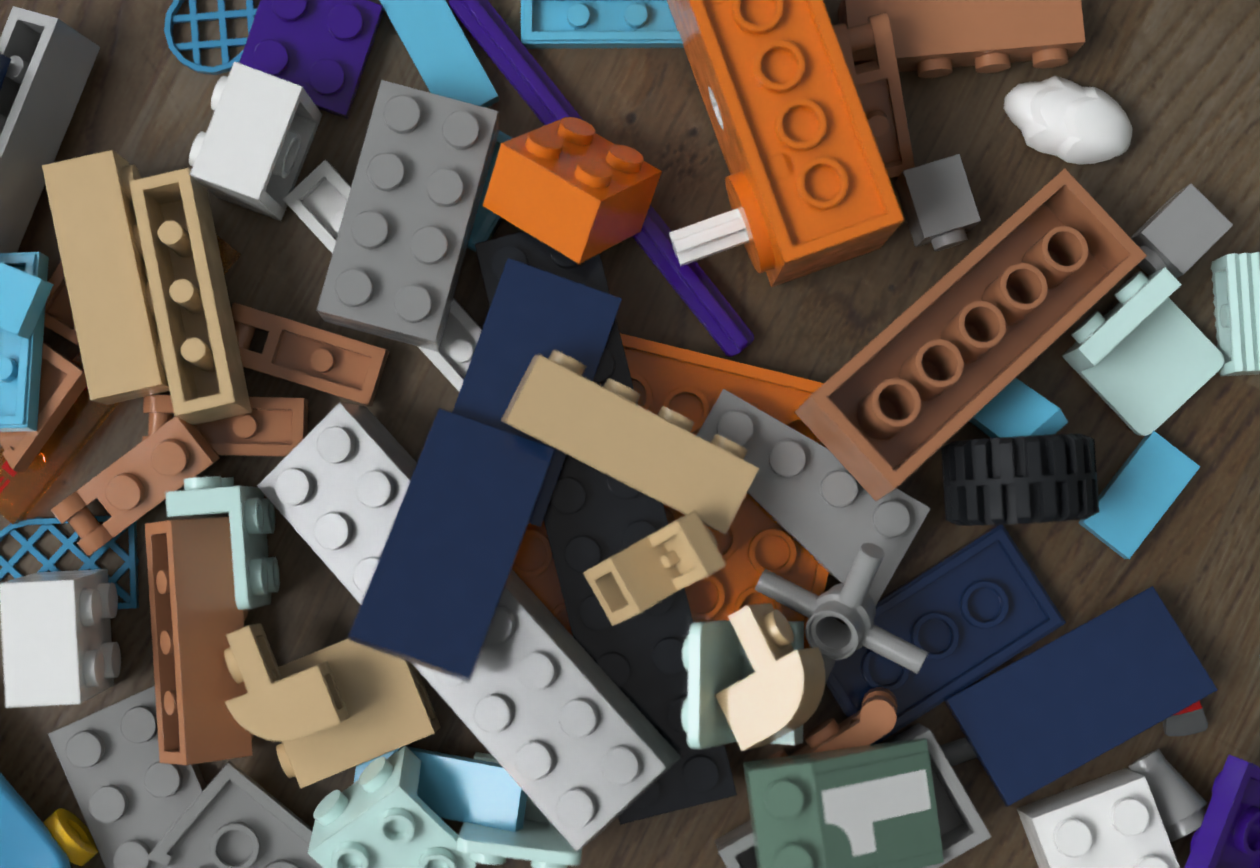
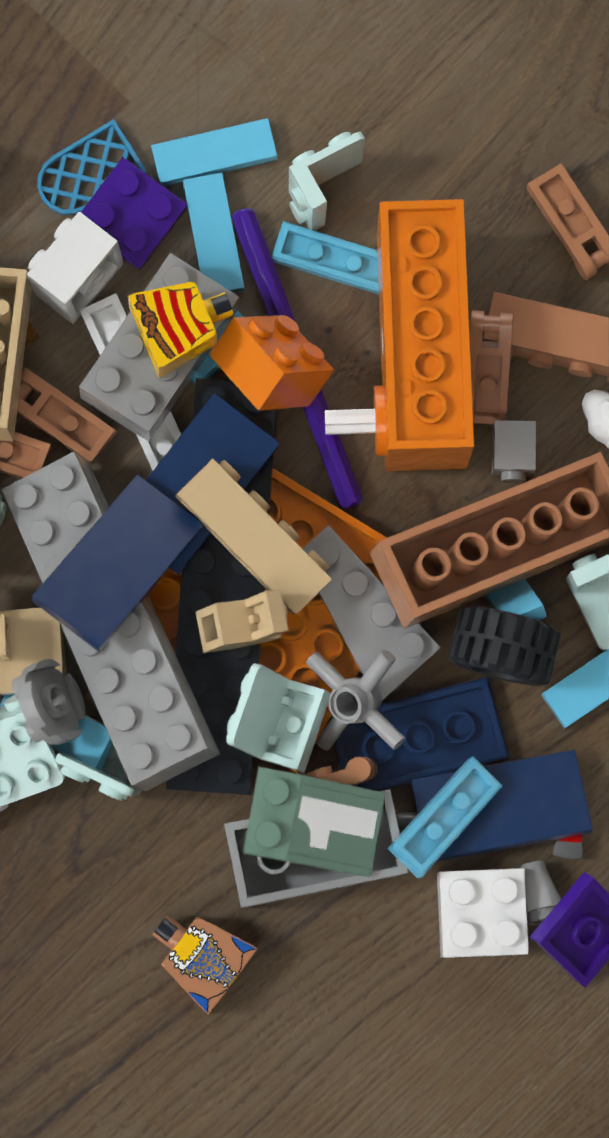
camera: 20 degrees right, 5 degrees down
(422, 796) = (49, 702): none -> light grey plate
(425, 176) = (177, 323): none -> torso
(784, 684) = (301, 726): brick -> none
(1016, 742) = (445, 817): none -> medium azure tile

